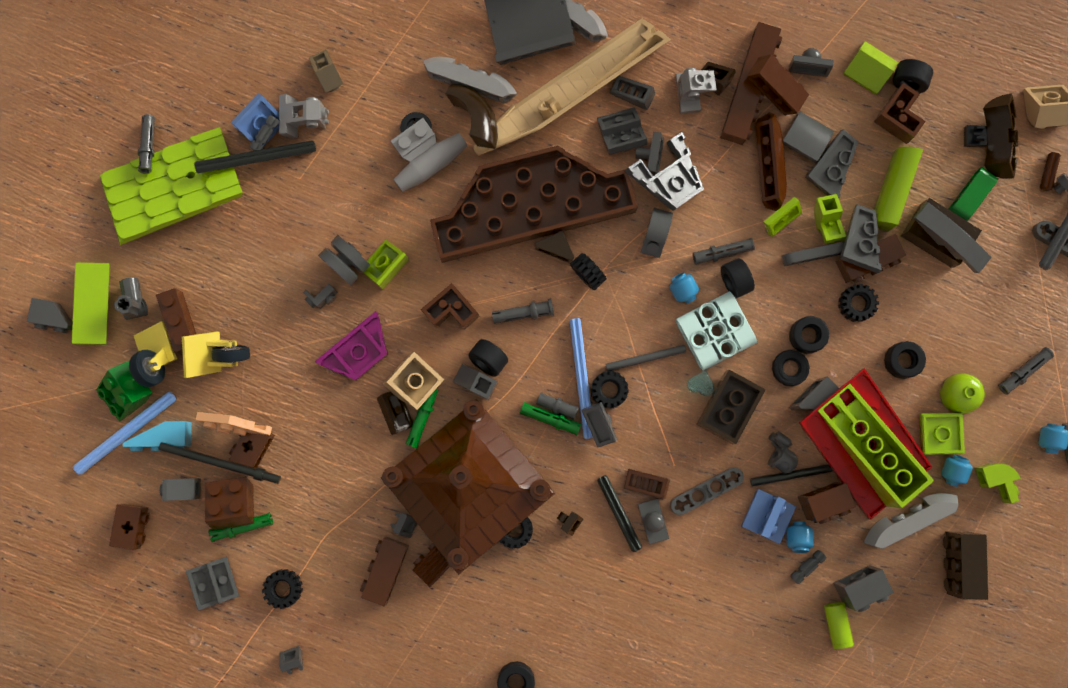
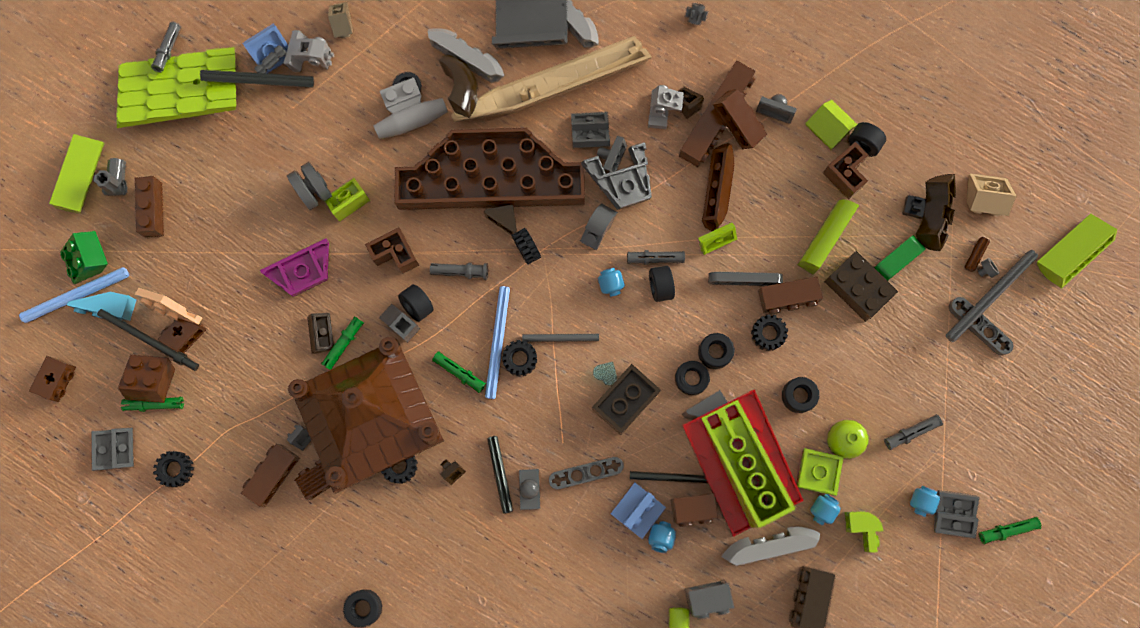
camera: 15 degrees right, 5 degrees down
(49, 313) = (37, 174): dark grey slope -> none
(154, 353) = (110, 237): plate -> none
(180, 489) = (107, 355): dark grey slope -> none
(205, 356) = (162, 241): light yellow plate -> none
(291, 659) = (162, 536): dark grey tile -> none
(325, 297) = (284, 215): dark grey bracket -> none
(413, 381) = (342, 307): tan slope -> none
(557, 405) = (468, 361): dark grey pin -> none
(599, 424) = (501, 387): dark grey tile -> none
(631, 98) = (620, 103): dark grey slope -> none
(664, 487) = (546, 461): reddish brown slope -> none
(721, 310) = (646, 310): light aqua connector -> none
(782, 457) = (664, 458): dark grey piece -> none
(807, 137) = (758, 172): dark grey slope -> none
(808, 567) = (664, 567): dark grey axle -> none
(827, 218) = (759, 248): lime brick -> none
(832, 166) = (775, 203): dark grey wing -> none
(861, 240) = (784, 274): dark grey wing -> none
(953, 237) = (867, 290): dark grey slope -> none

